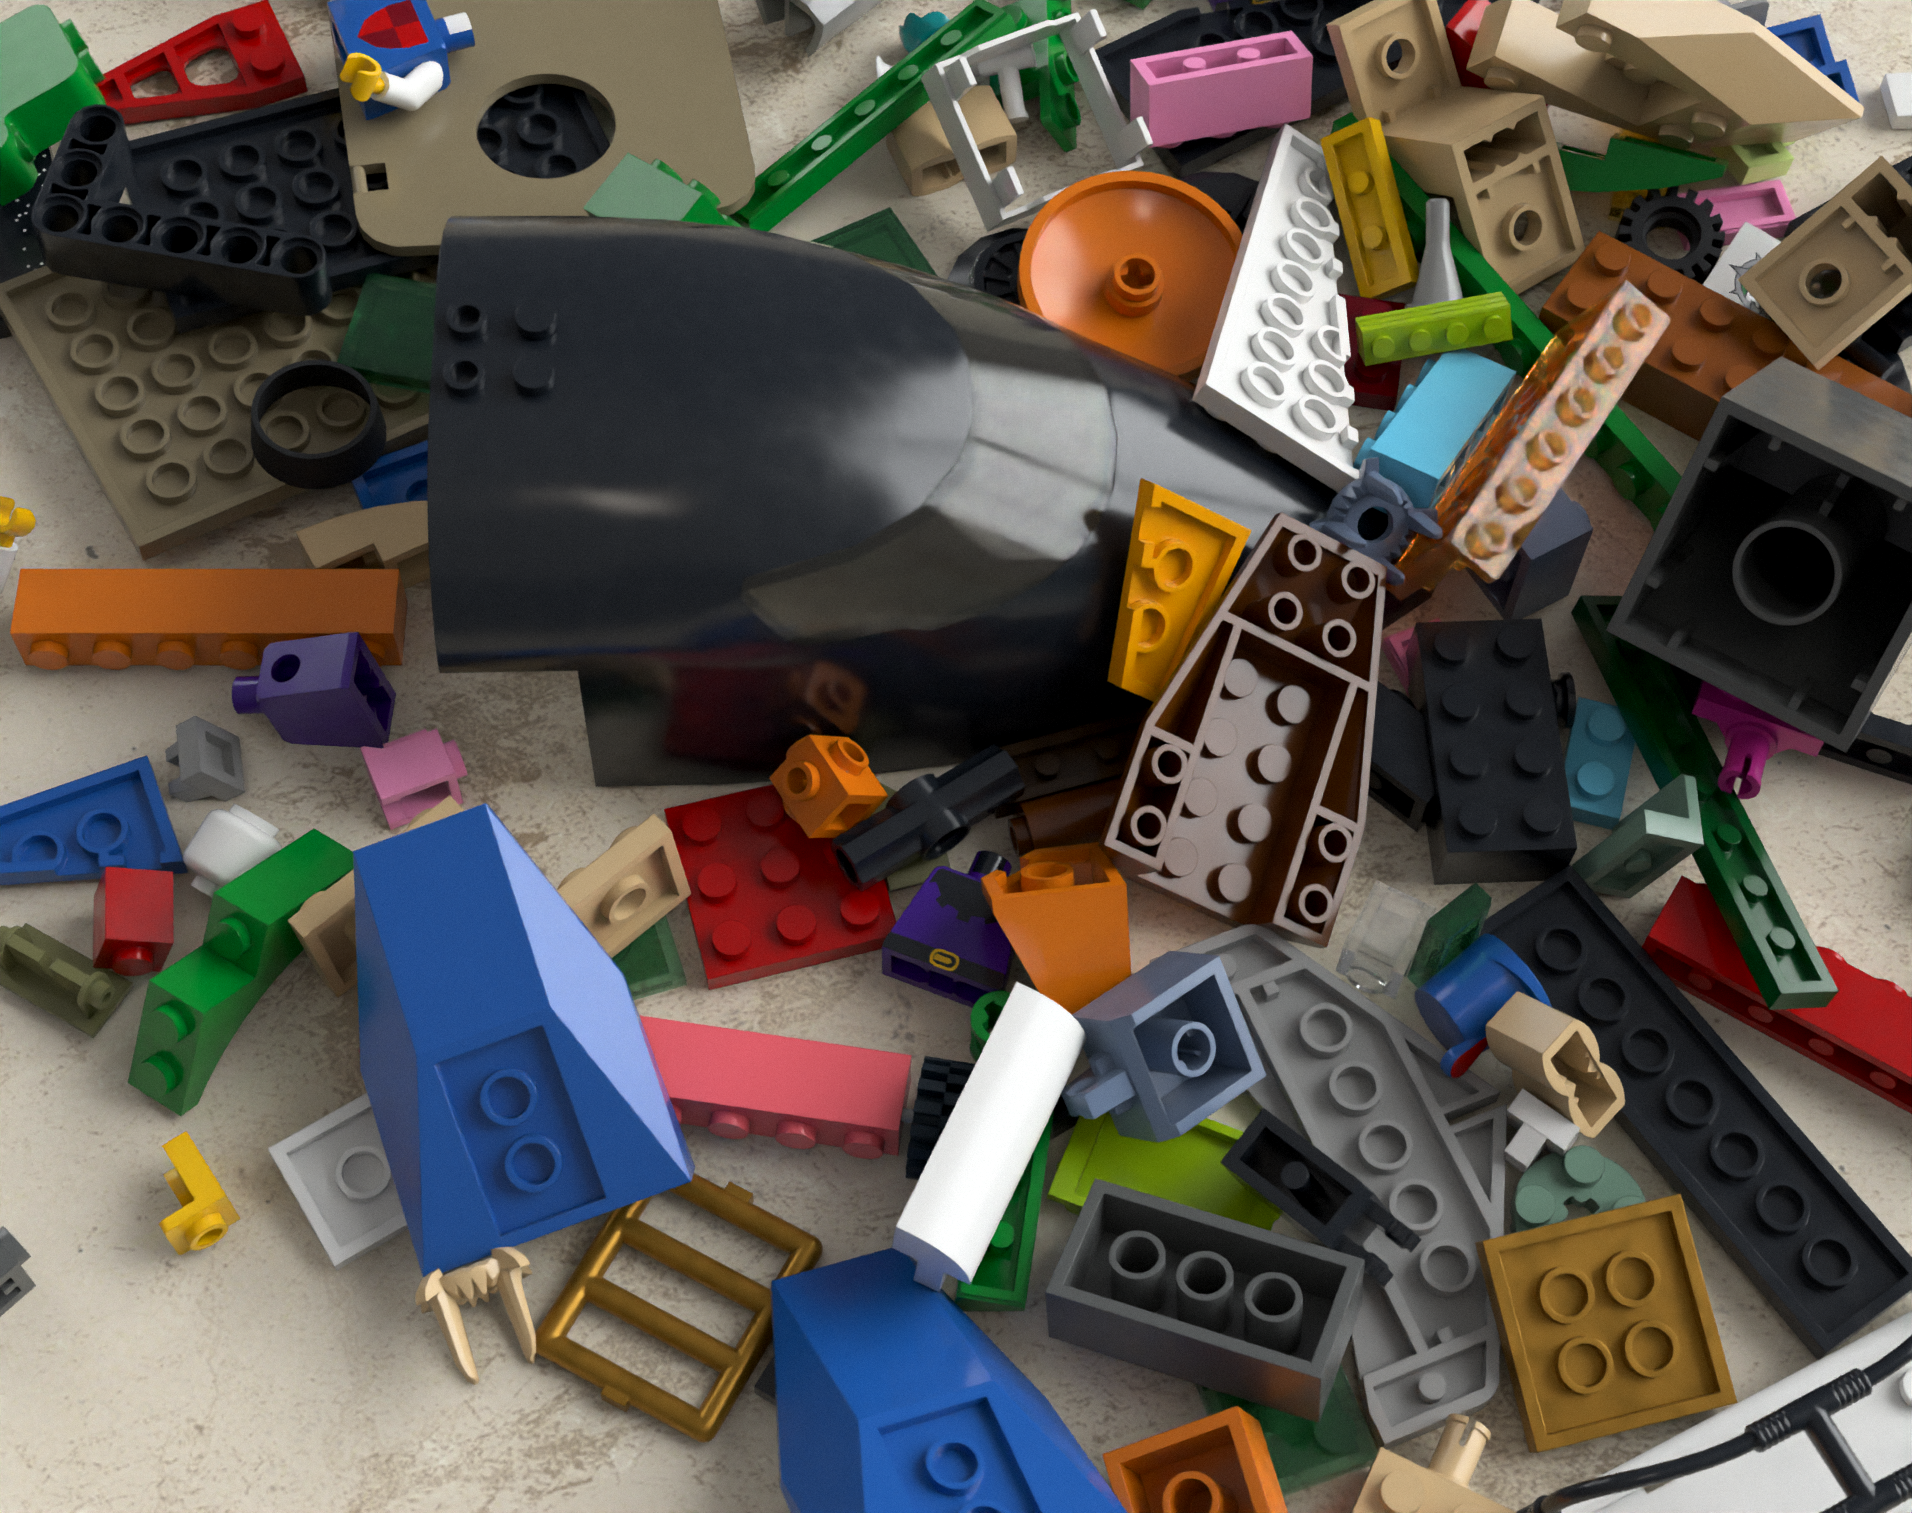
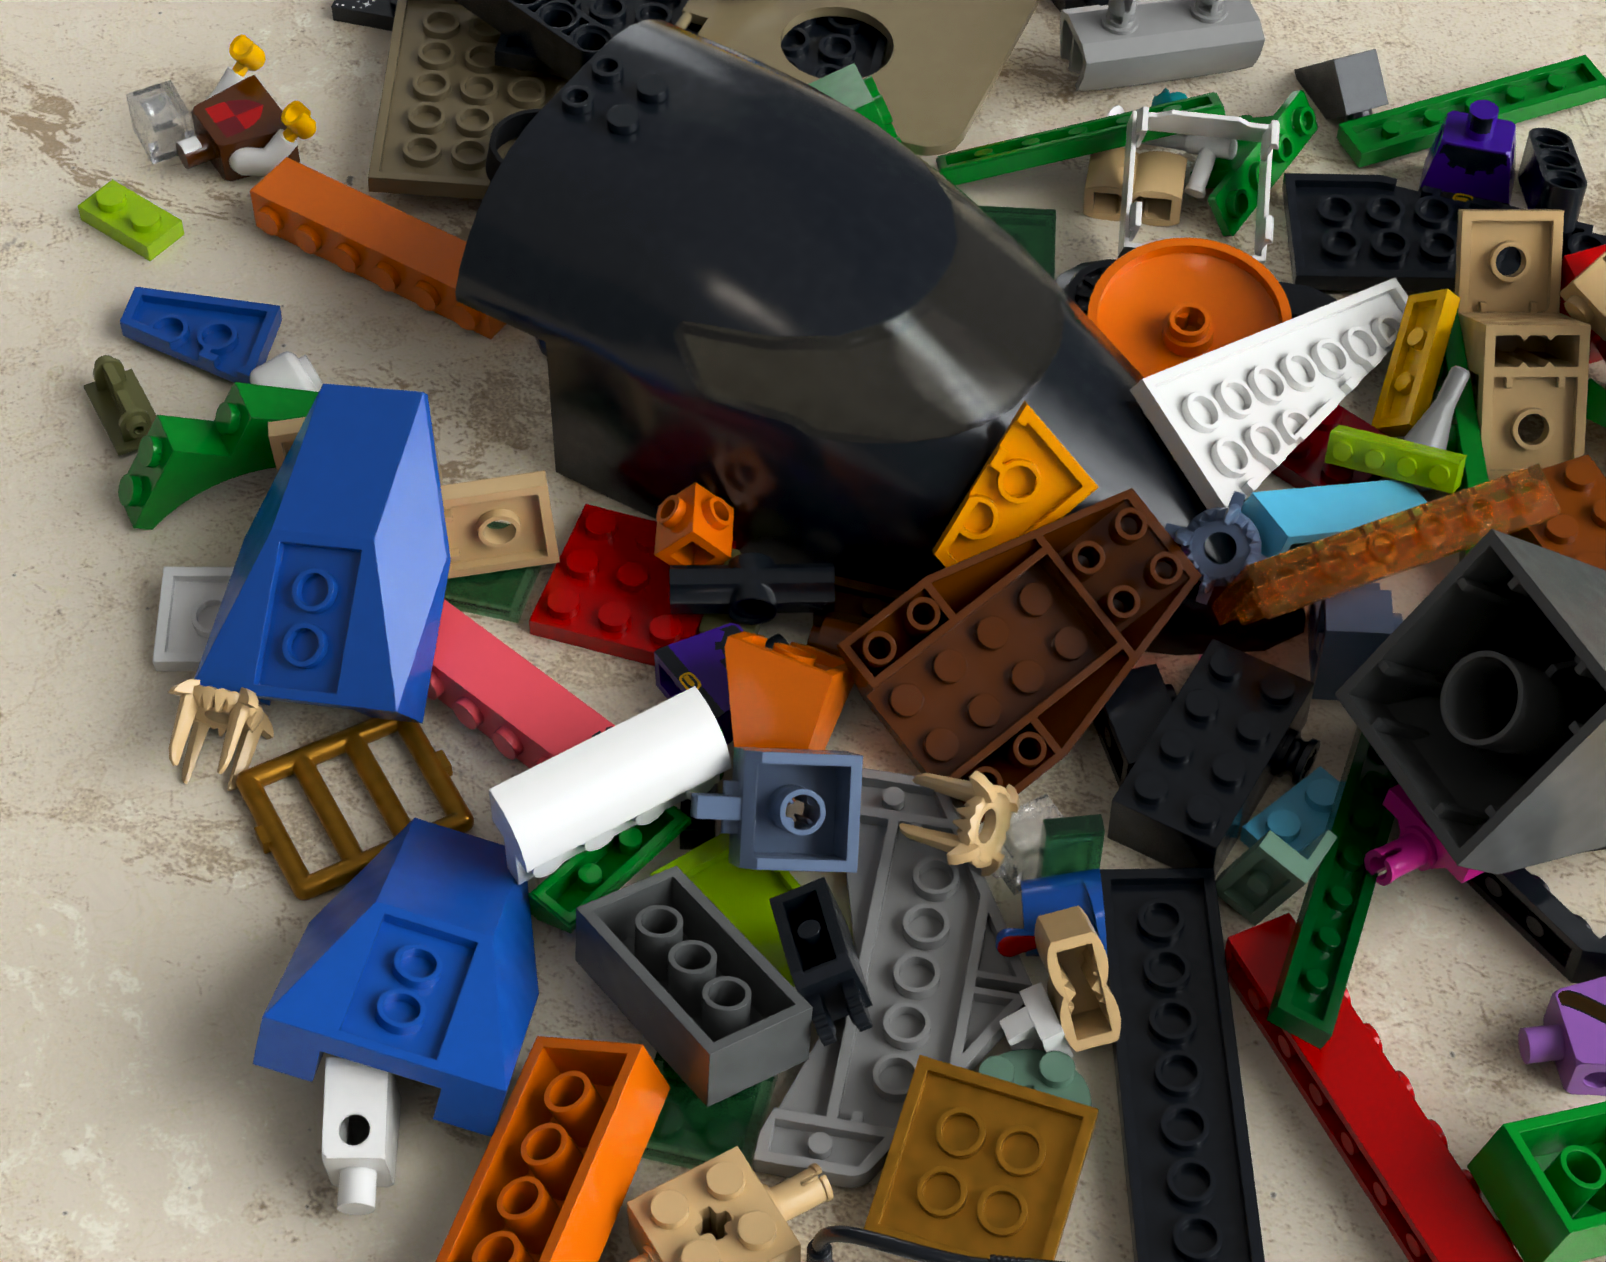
camera: 35 degrees right, 10 degrees down
(133, 920) = (193, 388): red brick -> none
(205, 1206) = (103, 579): yellow bracket -> none
(207, 762) = (314, 329): light grey tile -> none
(320, 692) = (417, 321): dark purple torso -> none
(414, 774) = (449, 398): bright pink window -> none
(1222, 88) = (1354, 229): bright pink brick -> none
(1363, 983) = (981, 798): none -> tan piece

